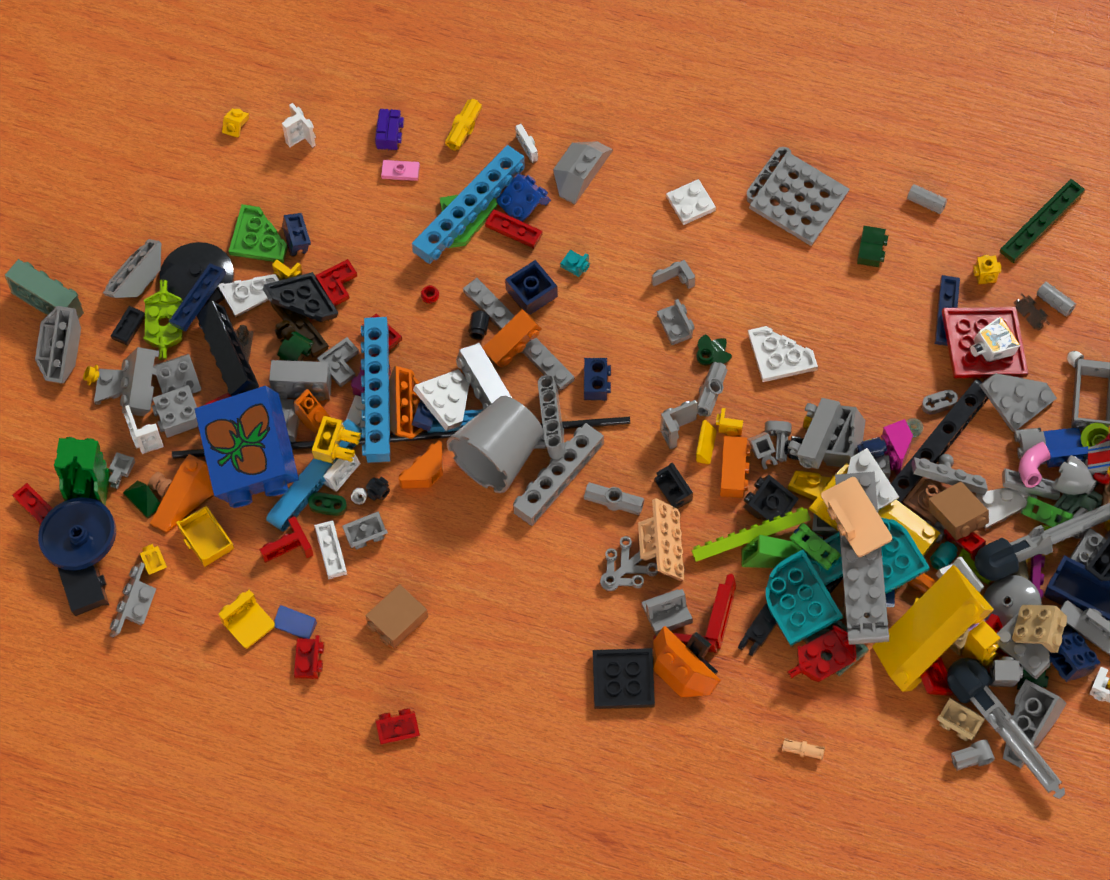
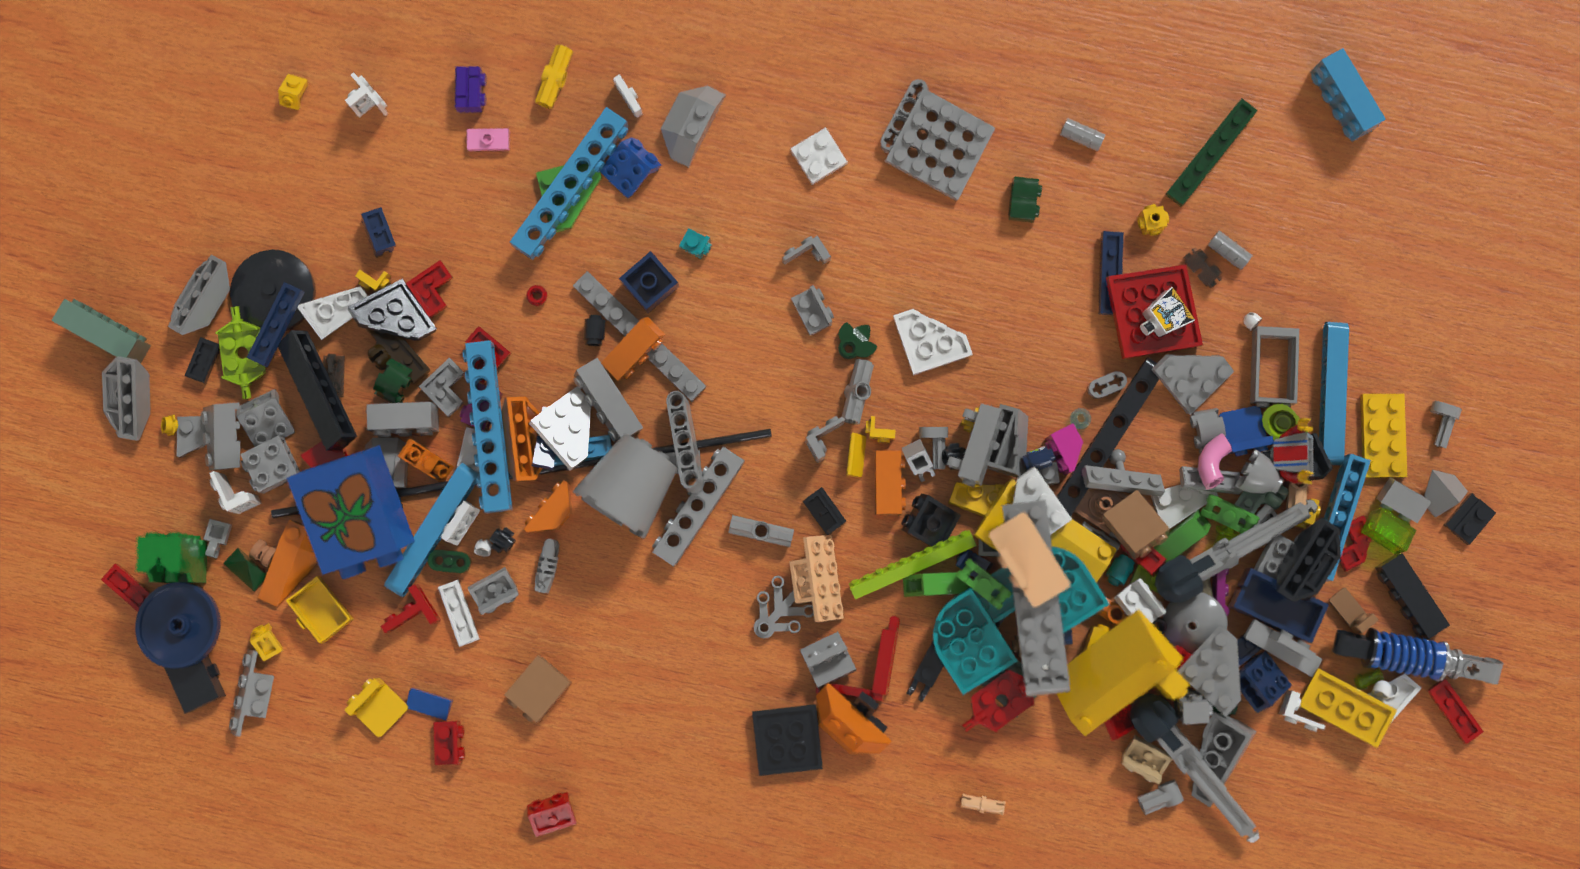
camera: 10 degrees left, 20 degrees up
(256, 237) = (334, 238): bright green plate -> none
(328, 439) = (441, 497): yellow brick -> none
(415, 514) = (547, 566): none -> light grey hinge
(513, 228) = (622, 206): red plate -> none
(594, 378) = (725, 388): dark blue brick -> none
(1006, 526) = (1184, 536): none -> bright green slope
(1040, 626) = (1229, 663): tan bracket -> none

